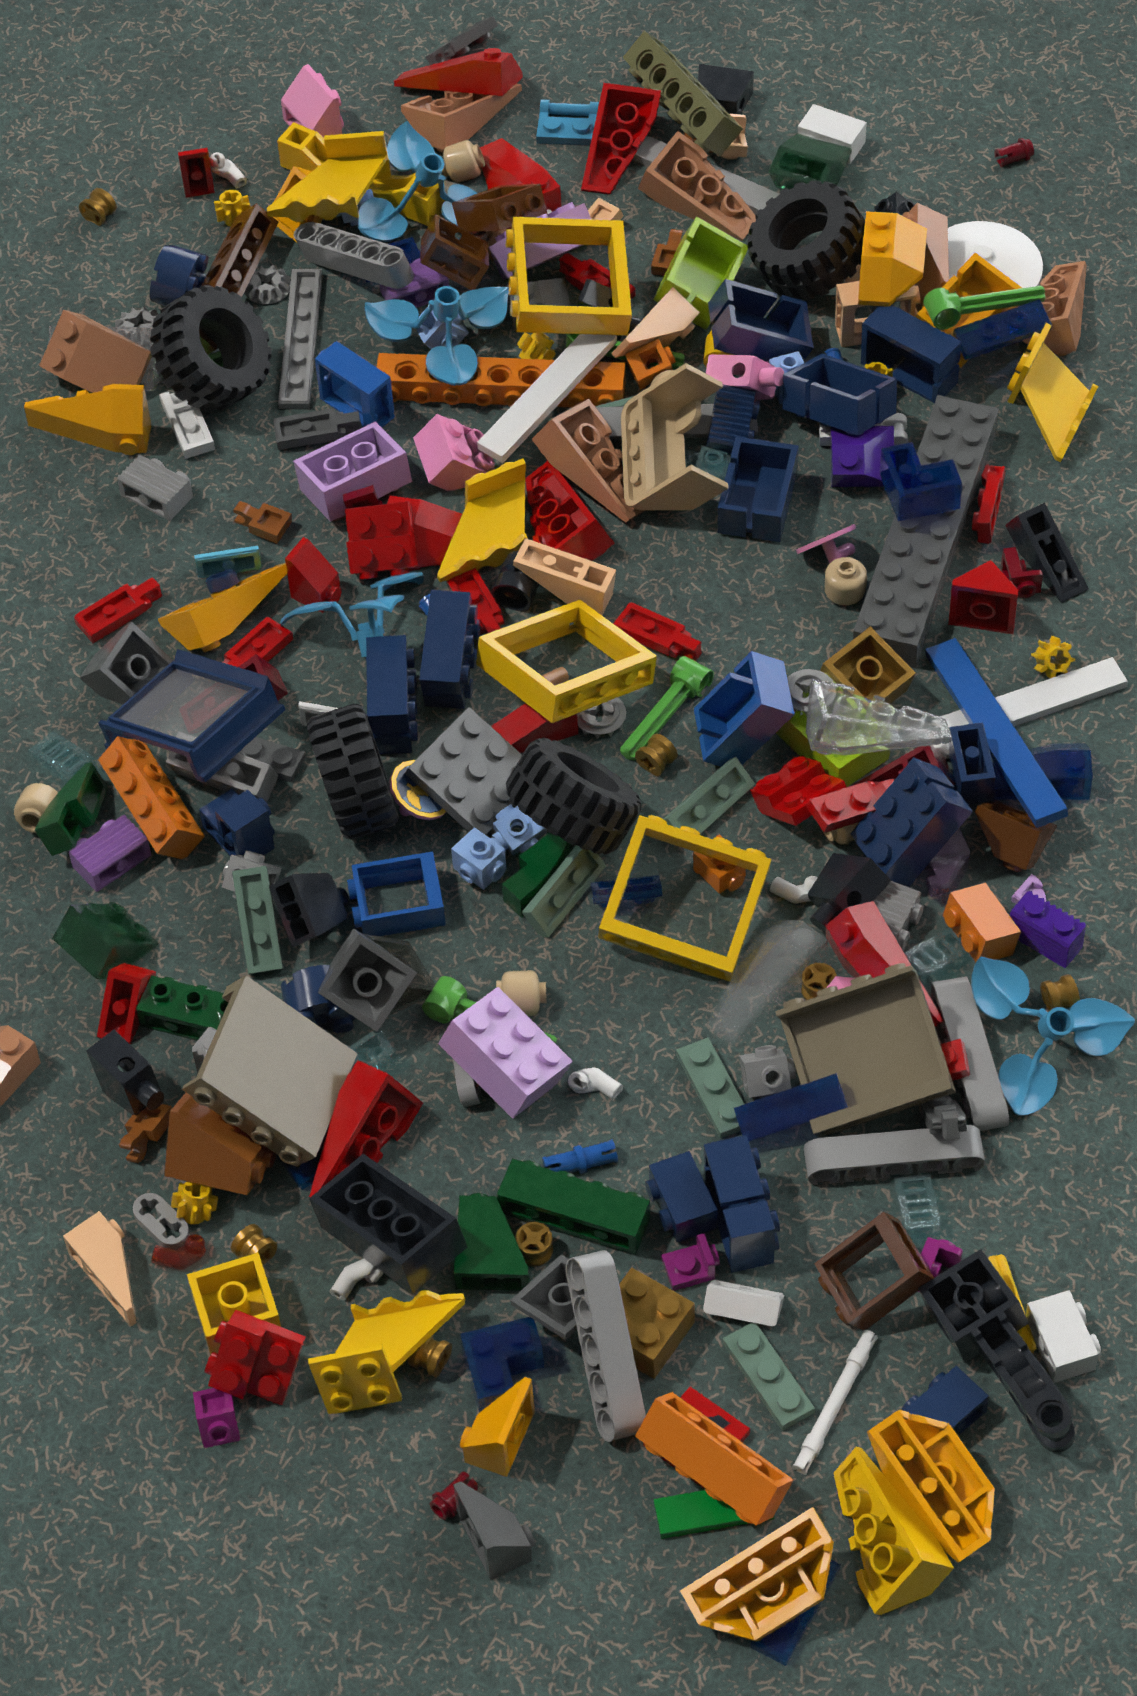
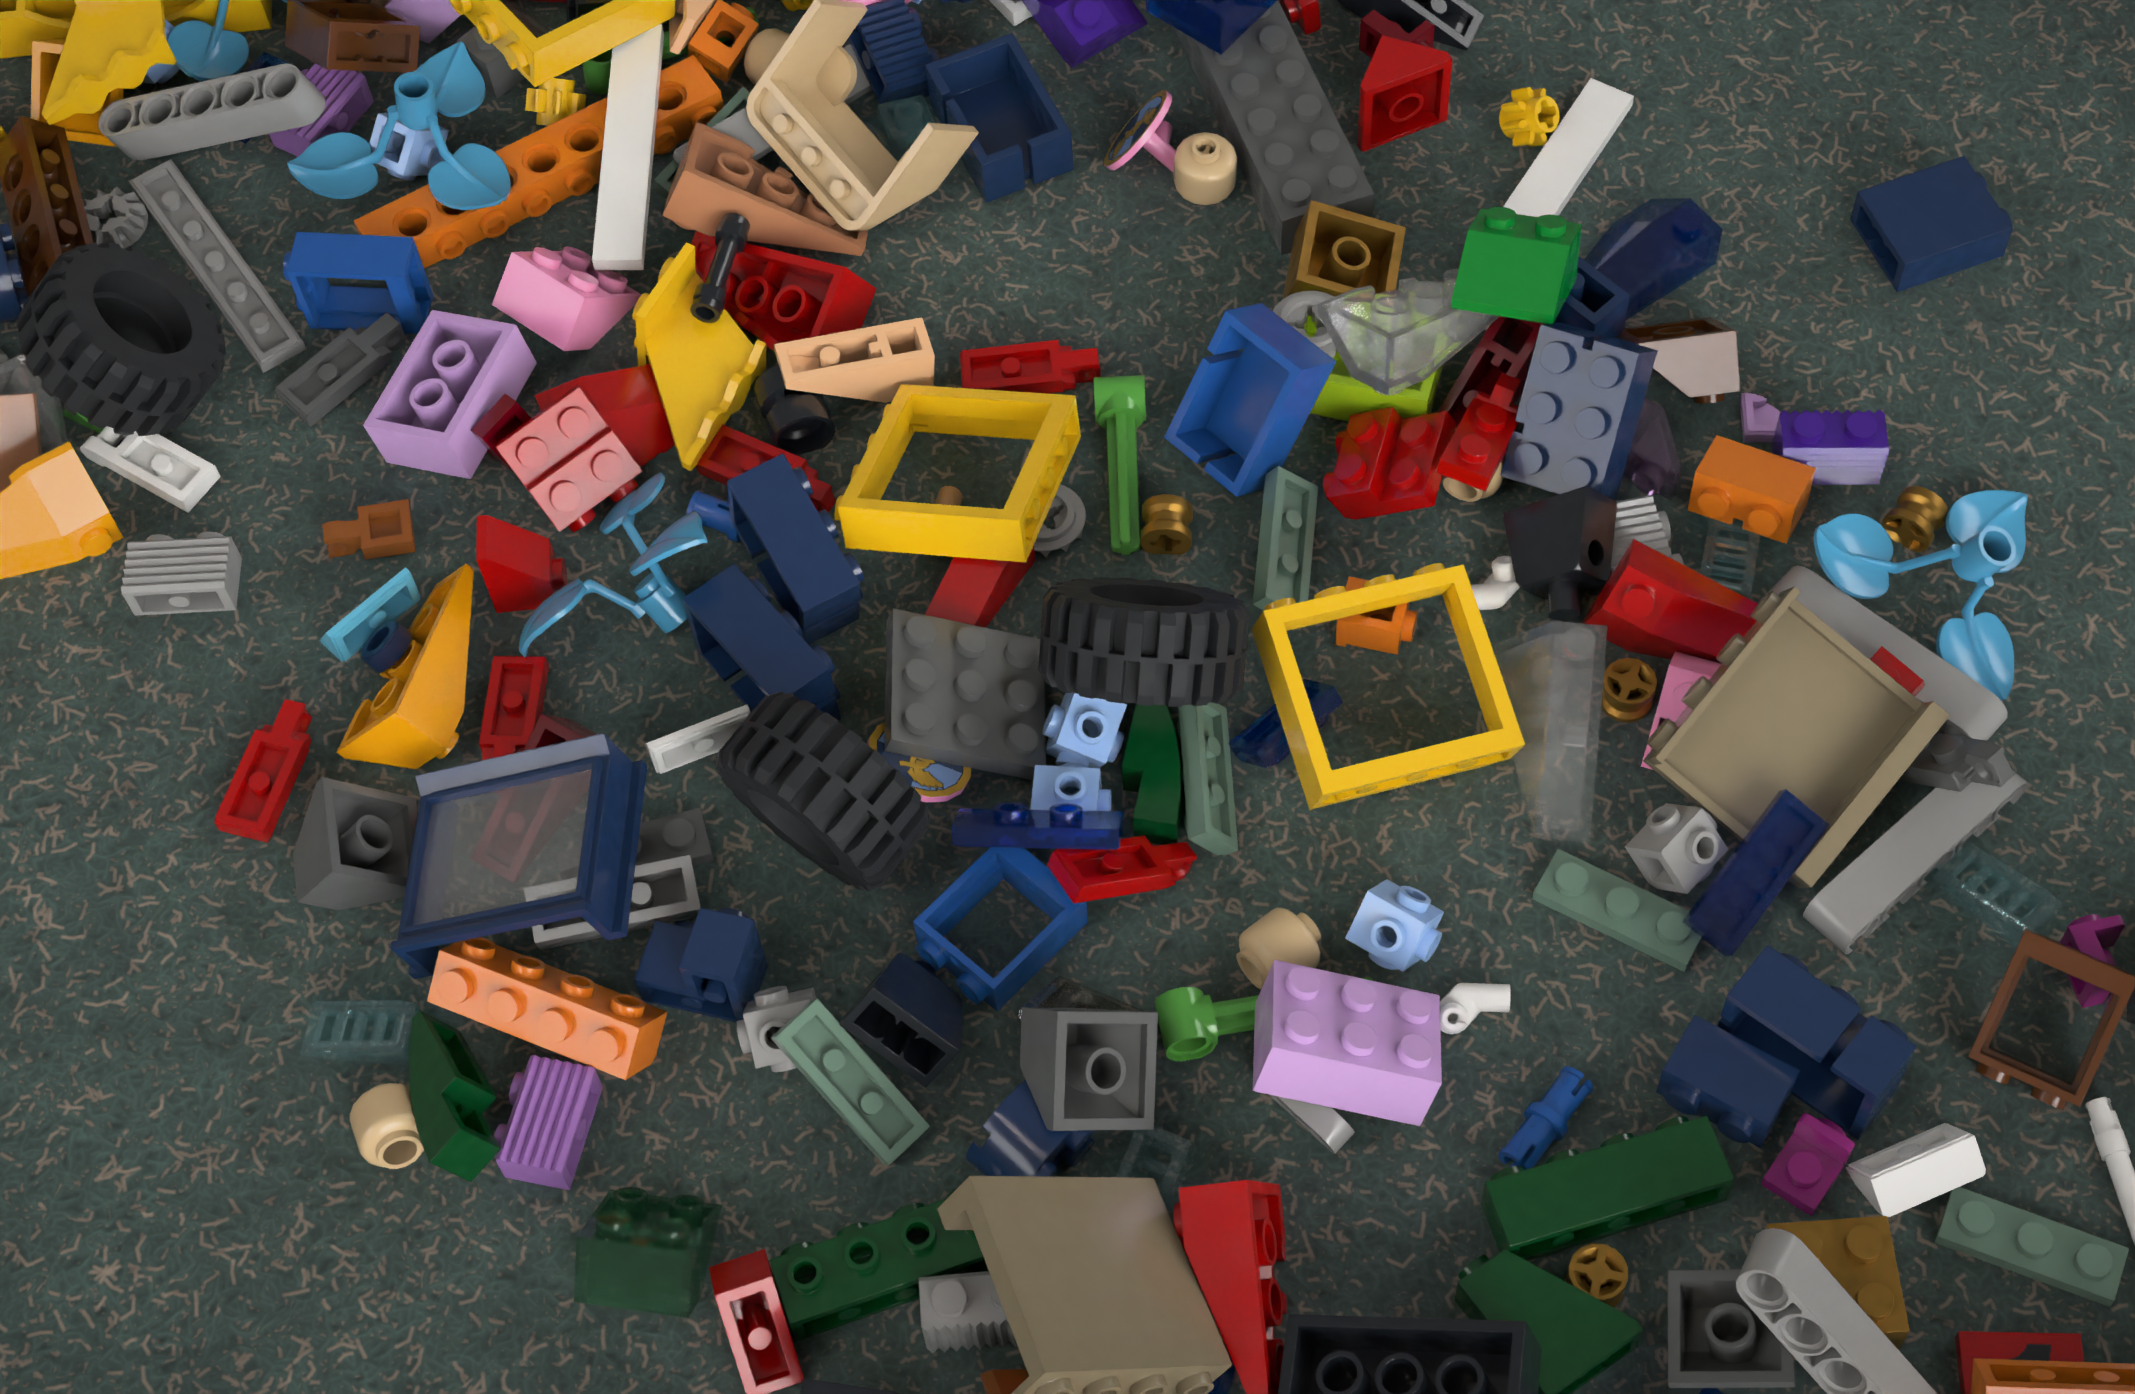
camera: 35 degrees left, 5 degrees up
(453, 861) = (1059, 827): none -> clear blue plate
(474, 904) = (1128, 870): none -> red hinge
(557, 471) = (710, 296): none -> black bar
(587, 1018) = (1396, 926): none -> light blue brick
(934, 721) = (1517, 265): none -> green slope
(1005, 744) = (1634, 268): blue tile -> none

